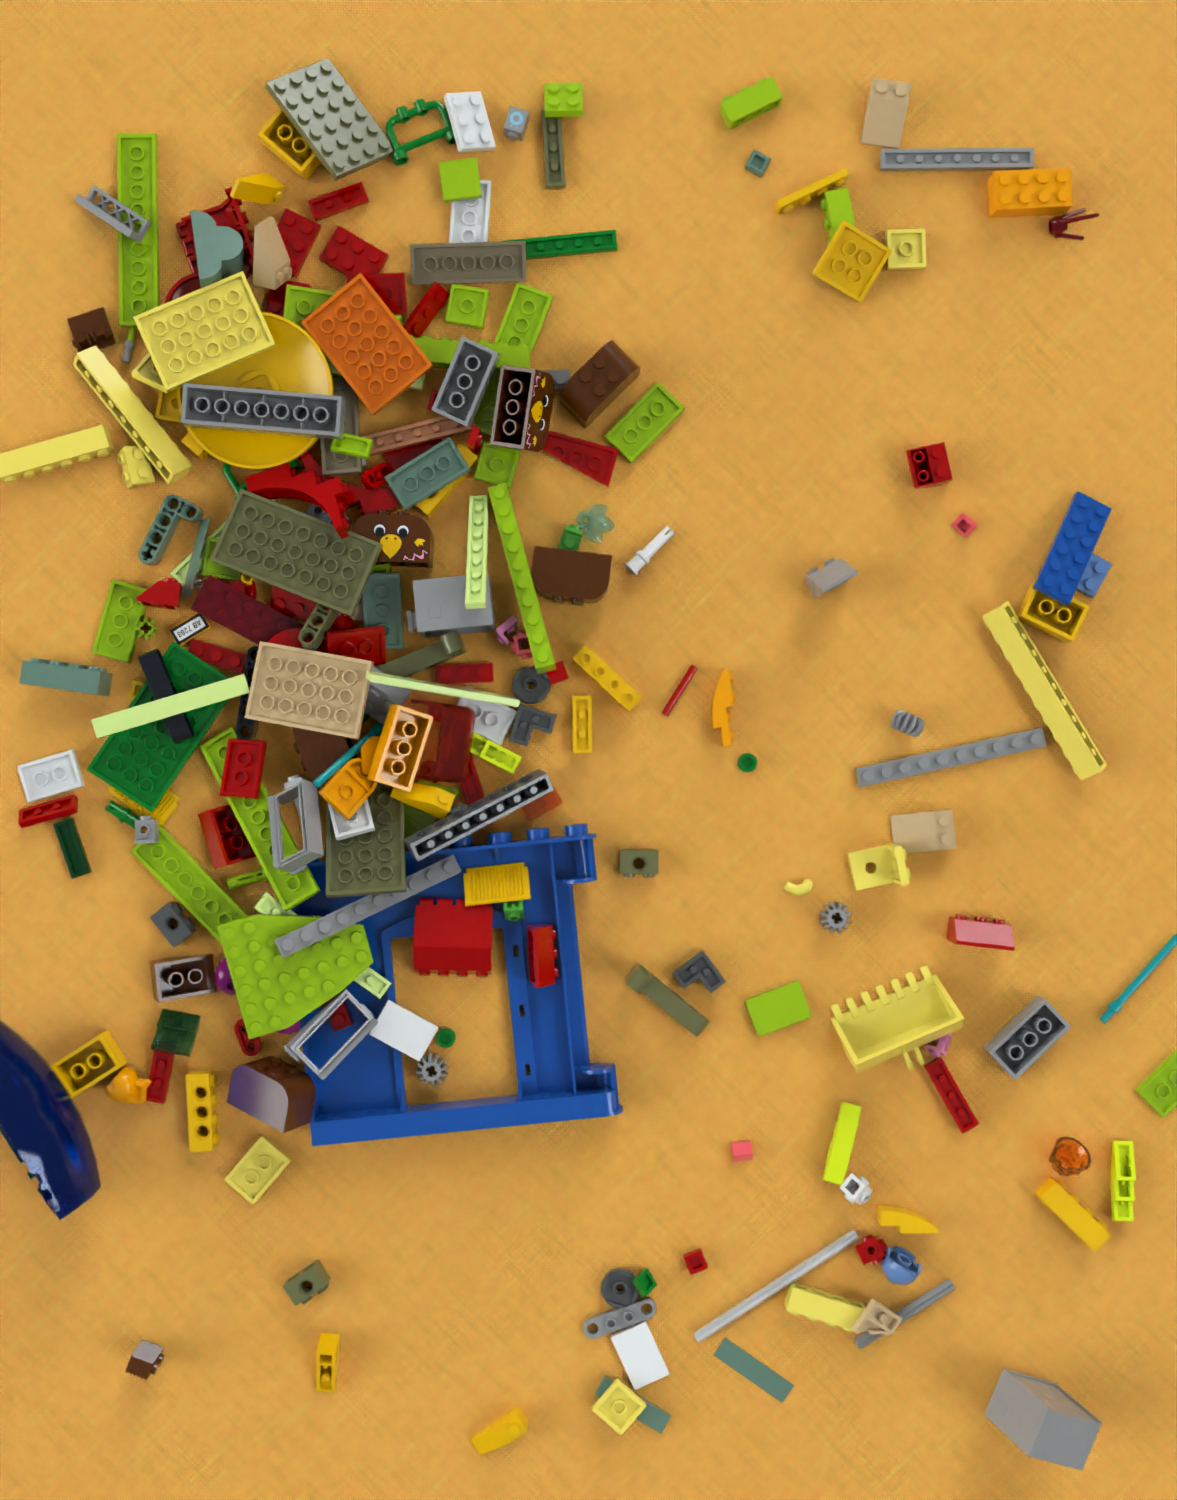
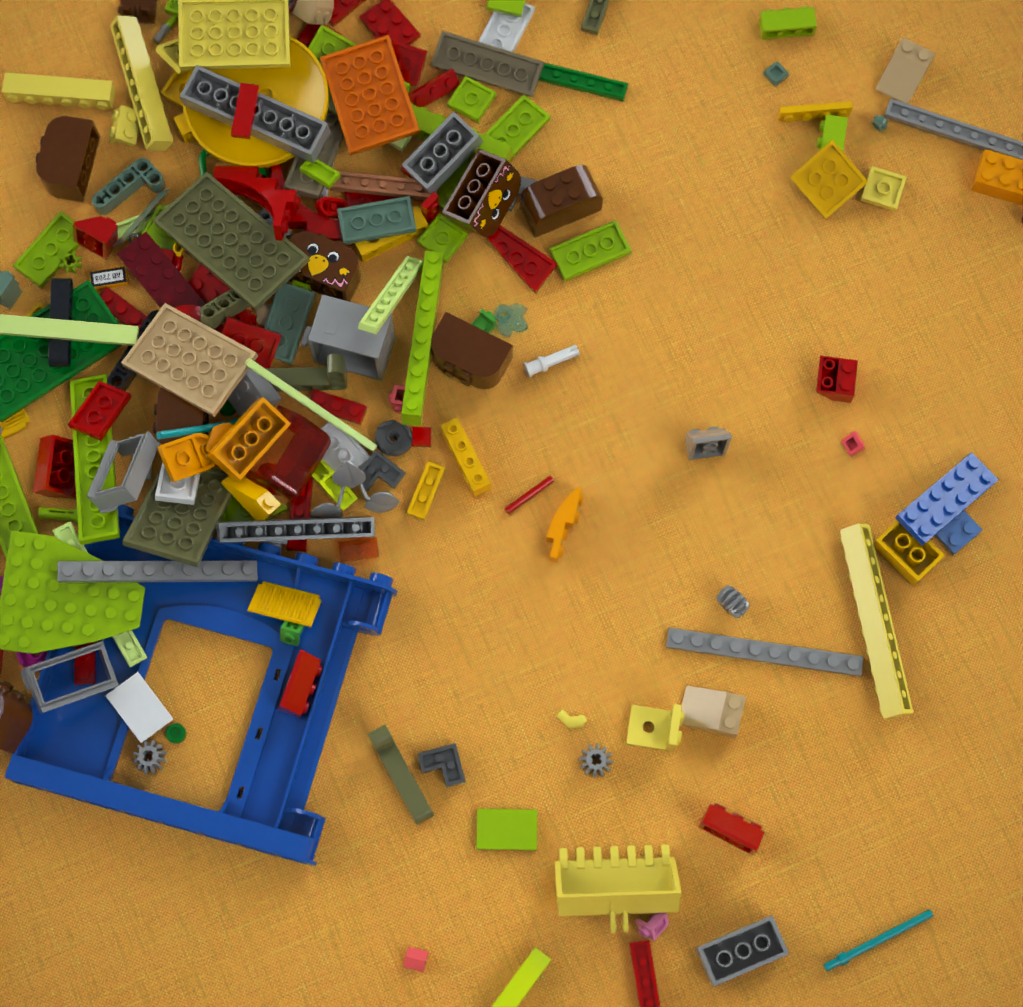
camera: 15 degrees right, 15 degrees down
(94, 522) = (67, 157): none -> reddish brown brick
(254, 415) = (245, 111): none -> red tile
(452, 938) = (221, 639): red hinge -> none
(508, 626) = (390, 379): bright pink bracket -> none
(510, 746) = (351, 476): none -> light grey plant
(627, 857) = (419, 627): olive brick -> none
(747, 762) = (567, 584): green tile -> none
(879, 179) = (880, 122): none -> sand green plate

